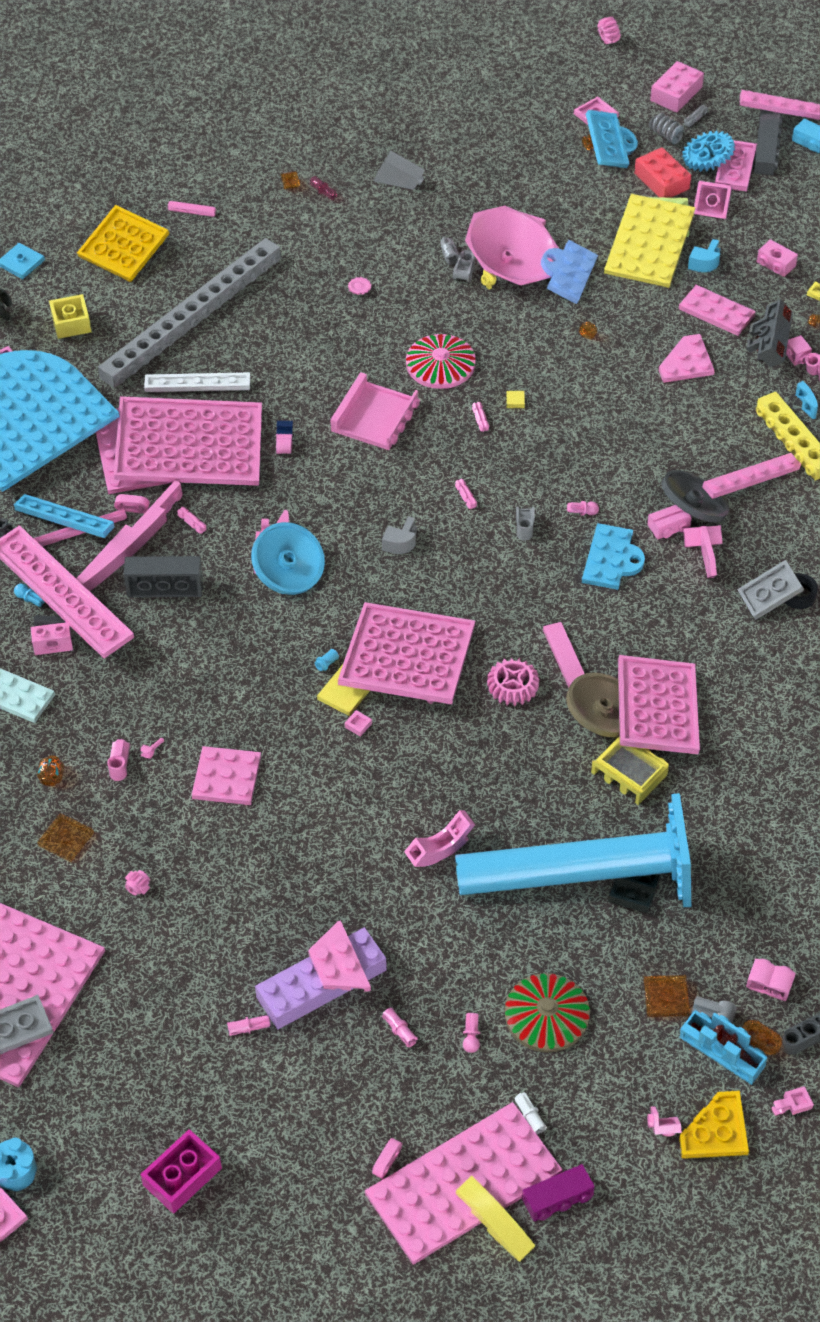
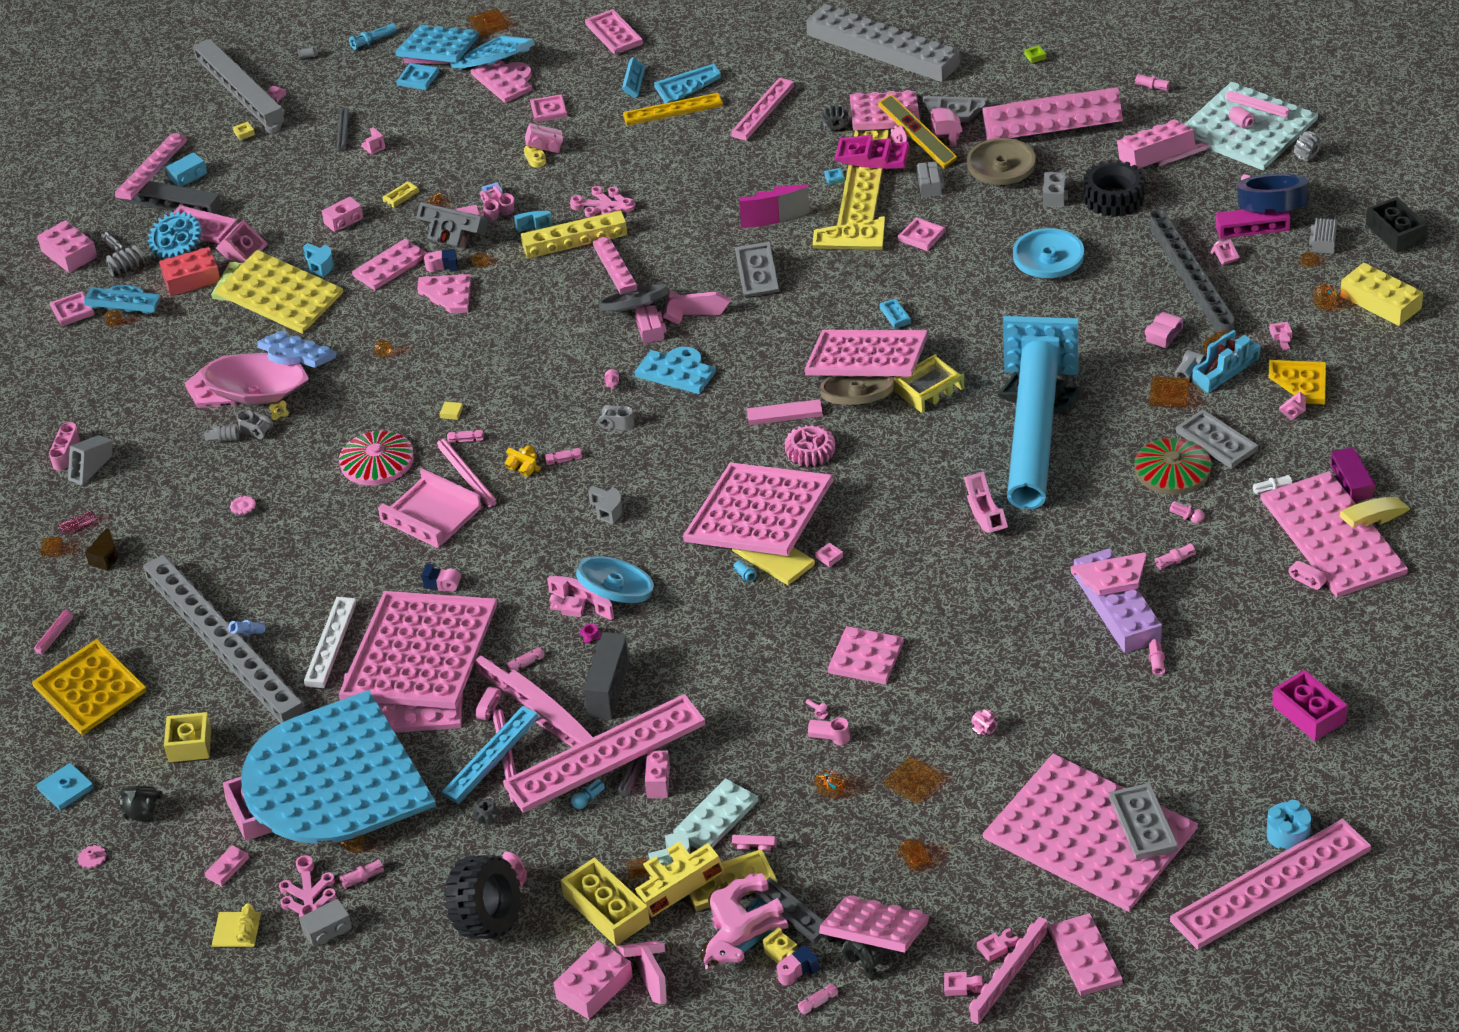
camera: 75 degrees left, 10 degrees down
(199, 321) = (246, 627): none -> light blue pin
(230, 559) = (590, 633): none -> dark pink plate
(288, 212) = (102, 551): none -> dark brown slope
(417, 153) = (60, 448): none -> bright pink beam
(430, 428) = (467, 473): none -> bright pink axle
(450, 464) = (525, 457): none -> yellow hips
(595, 1050) = (1217, 438): none -> light grey plate
(728, 344) = (441, 260): none -> leg
(739, 724) = (895, 313): none -> medium azure plate
(740, 374) = (479, 260): none -> clear orange tile

